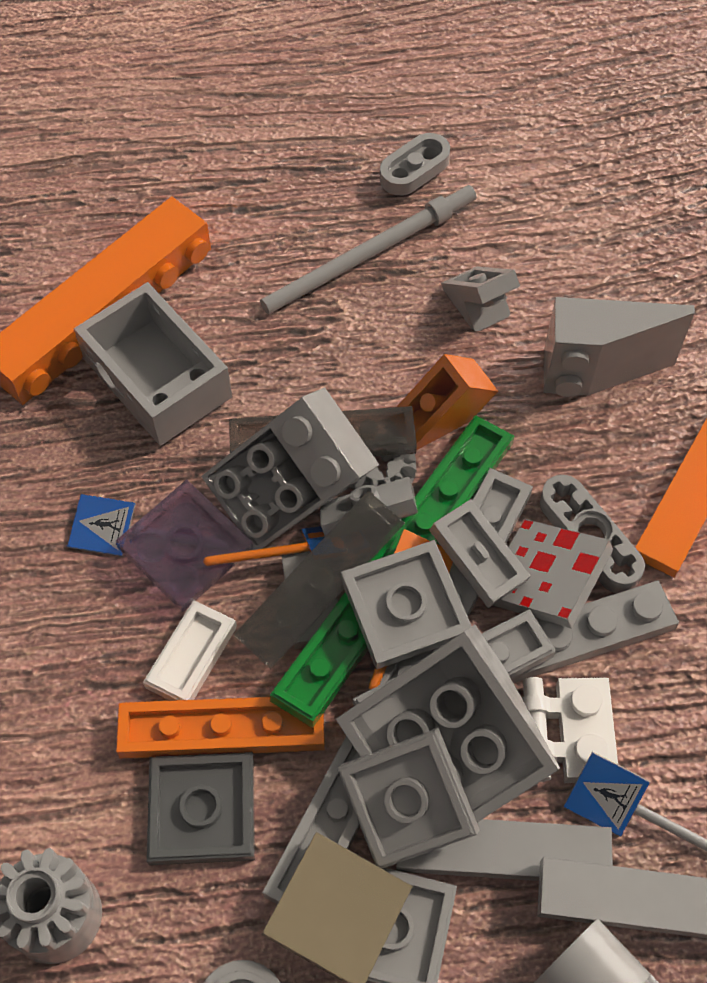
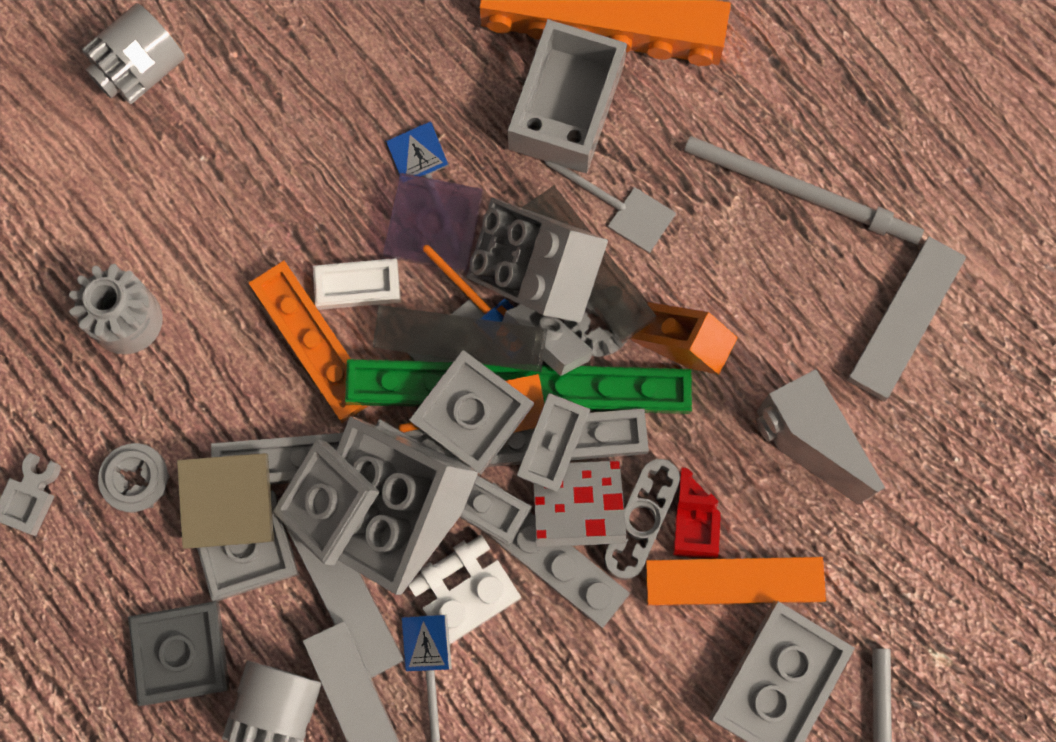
camera: 60 degrees right, 15 degrees up
(201, 809) = (250, 366): dark grey tile -> none
(295, 381) = (638, 218): none -> light grey piece
(408, 166) = (915, 168): light grey plate -> none
(482, 295) = (813, 305): light grey slope -> none
(534, 239) = (906, 319): none -> light grey tile
(619, 490) = (696, 520): none -> red slope

